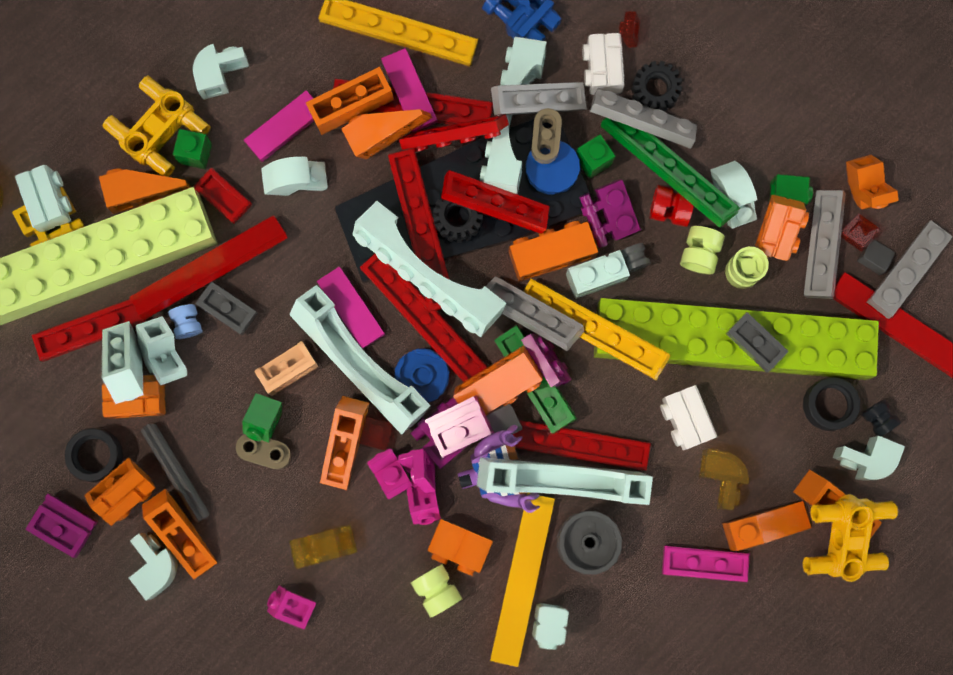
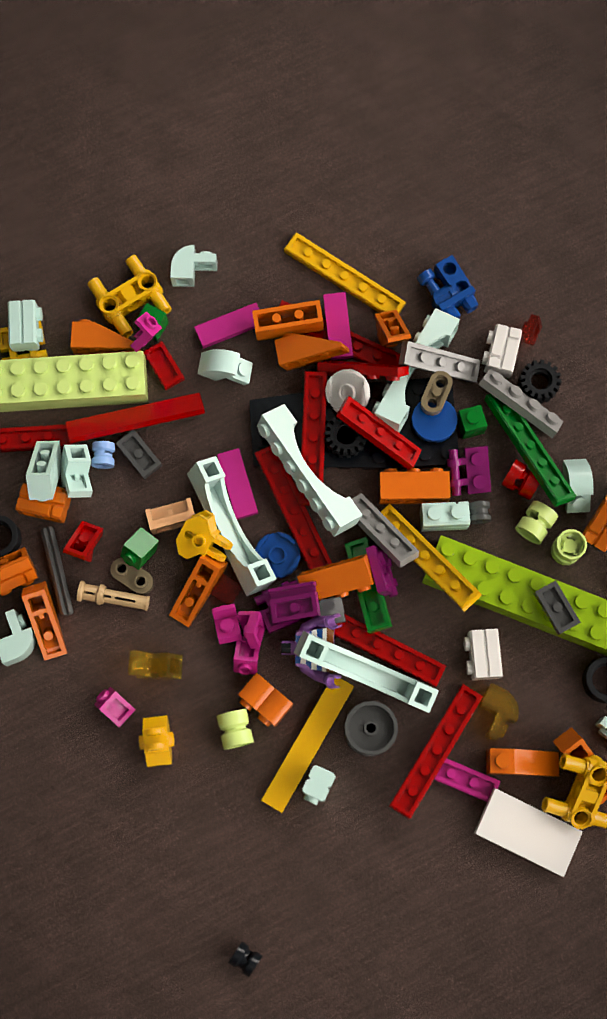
camera: 20 degrees right, 5 degrees down
(191, 160) = (148, 329): none -> dark pink bracket
(195, 429) = (84, 541): none -> red slope
(216, 487) = (100, 598): none -> tan pin
(327, 383) = (199, 536): none -> yellow hinge
(352, 632) = (157, 741): none -> yellow hinge
(440, 157) = (345, 384): none -> white tile
(471, 75) = (391, 328): none -> orange slope
(668, 544) = (435, 752): none -> red tile
(796, 601) = (528, 832): none -> white tile

